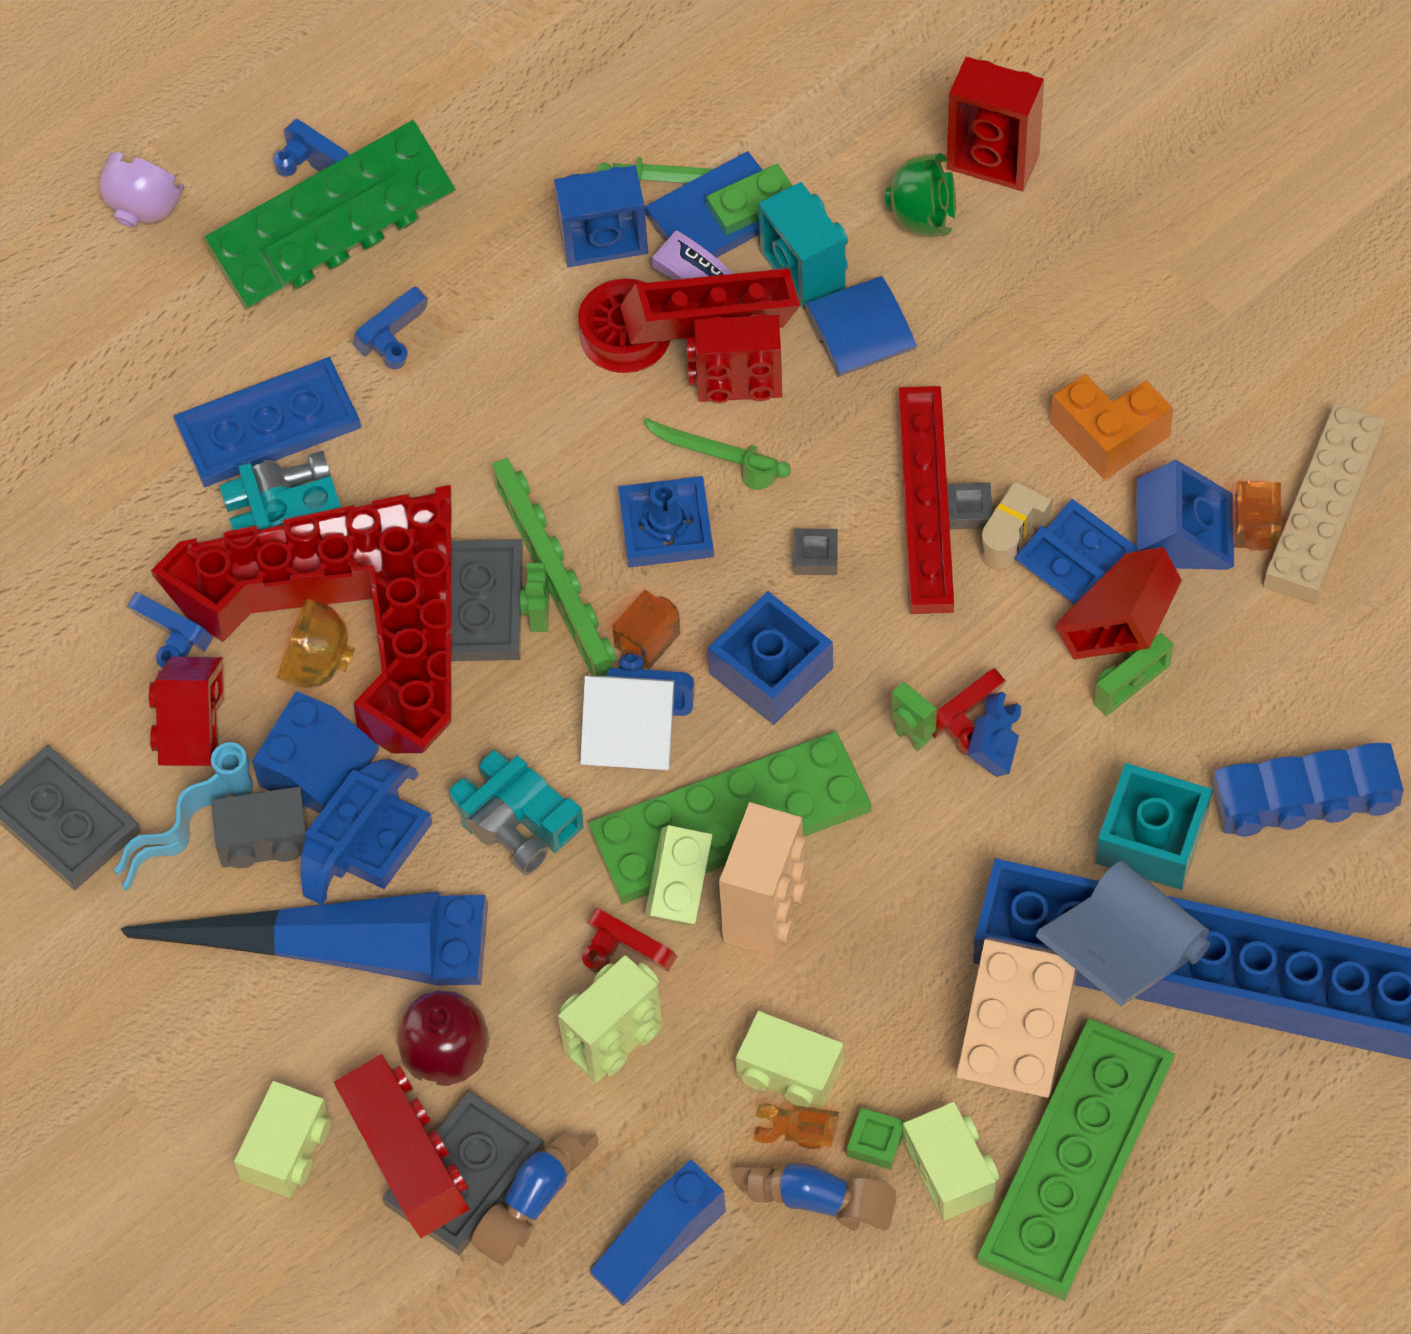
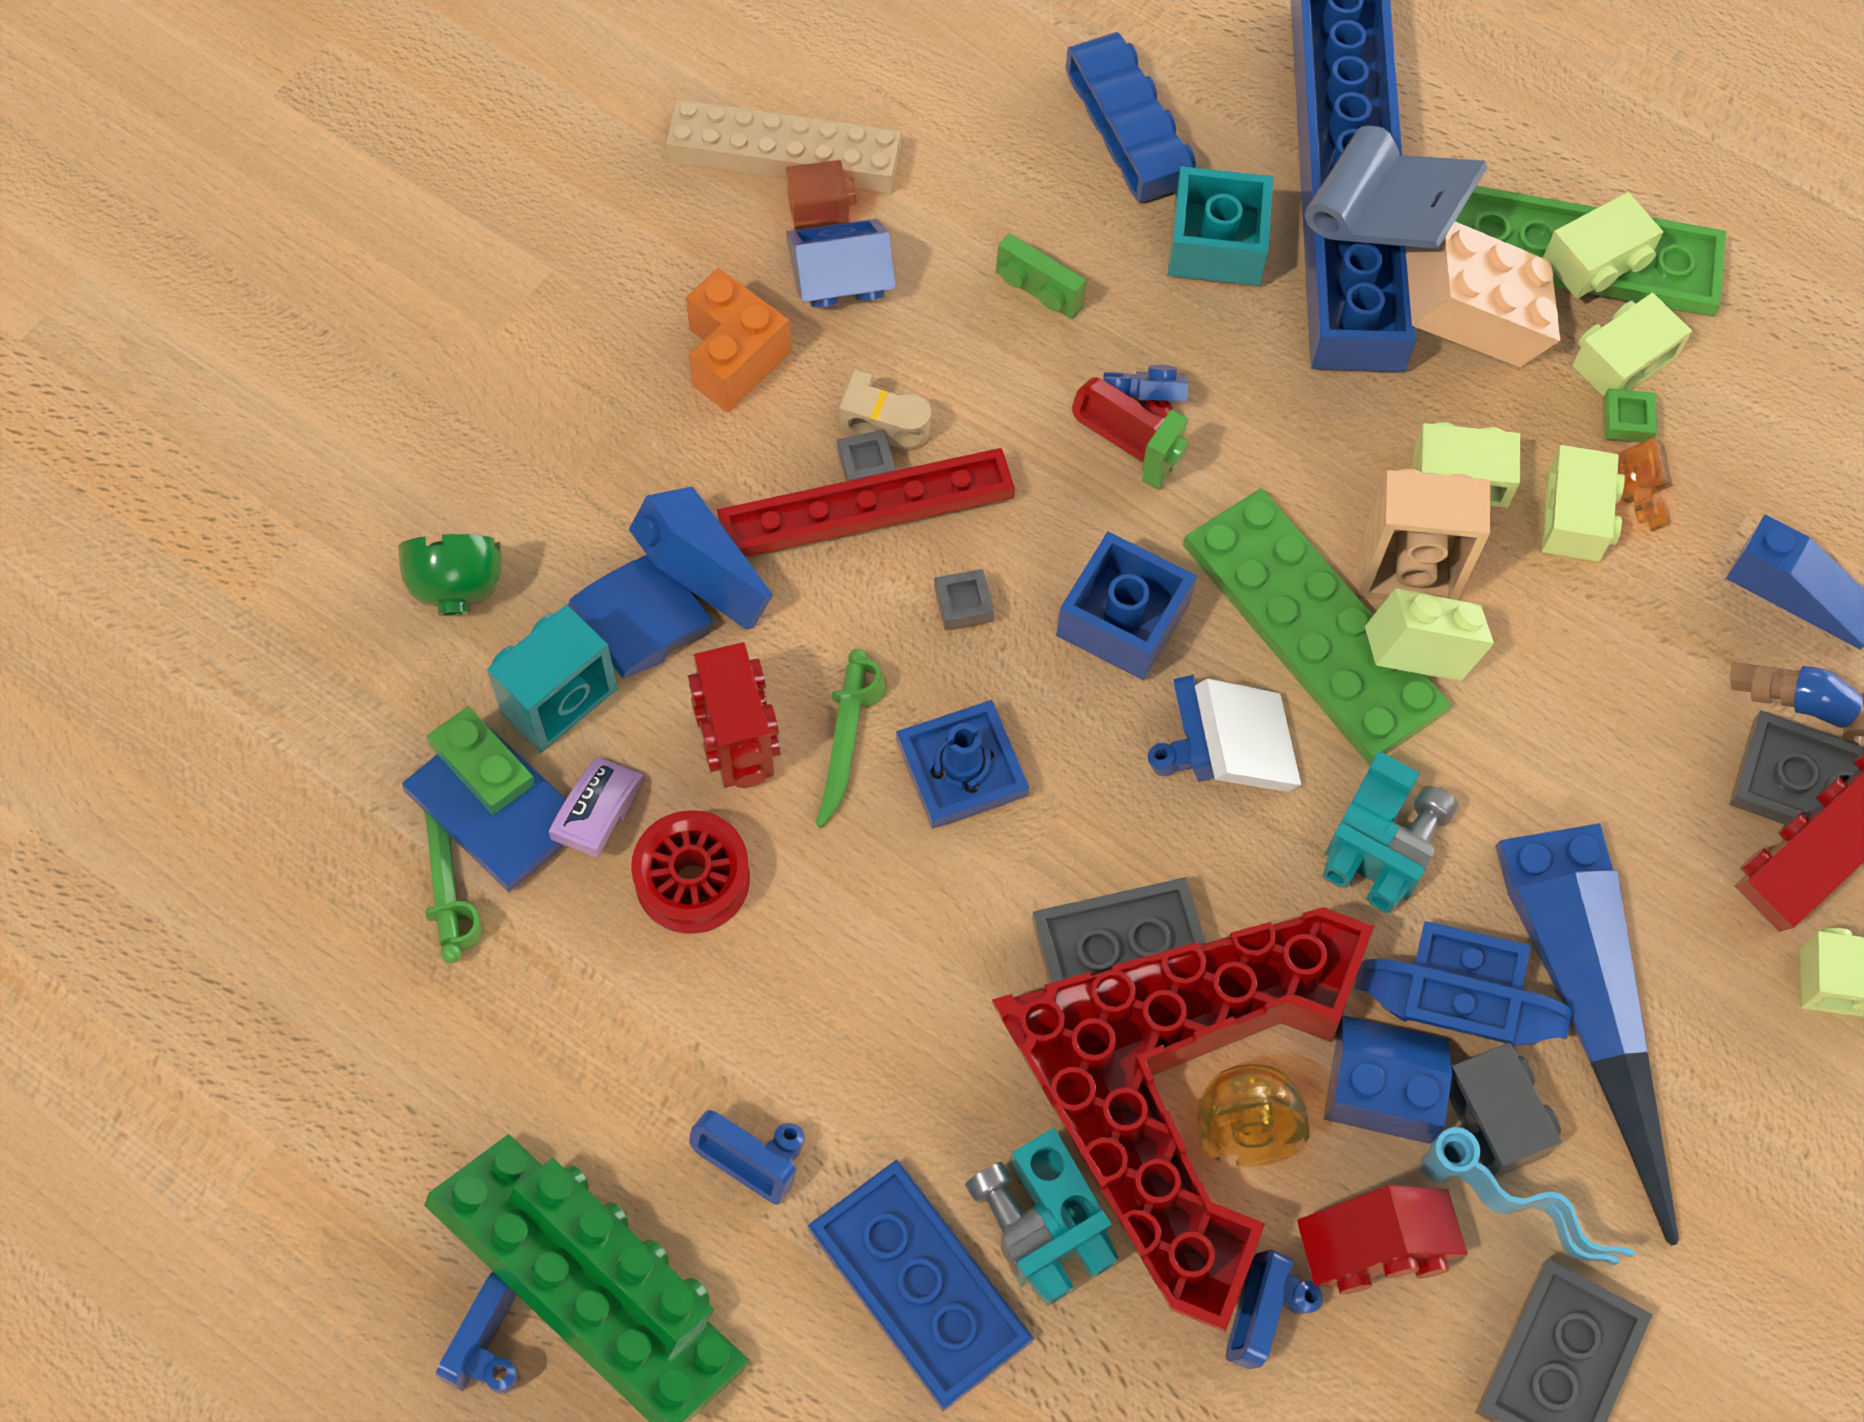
camera: 110 degrees left, 5 degrees up
(442, 1038) = (1676, 846): dark red cylinder -> none
(535, 598) = (1111, 870): bright green plate -> none
(562, 584) = (1045, 881): bright green plate -> none
(601, 216) = (542, 920): blue brick -> none
(611, 1018) = (1614, 662): yellowish green brick -> none
(614, 932) = (1501, 677): red piece -> none
(647, 628) = (1113, 748): clear orange brick -> none
(669, 307) = (673, 756): red brick -> none
(820, 1192) = (1720, 445): piece -> none
(854, 975) = (1474, 452): none -> yellowish green brick
(909, 357) = (698, 553): none -> blue slope
(994, 123) = (350, 489): red brick -> none
(1055, 1149) = (1603, 245): none -> yellowish green brick
(1073, 551) = (901, 350): blue slope -> none
(1122, 607) = (970, 285): red slope -> none

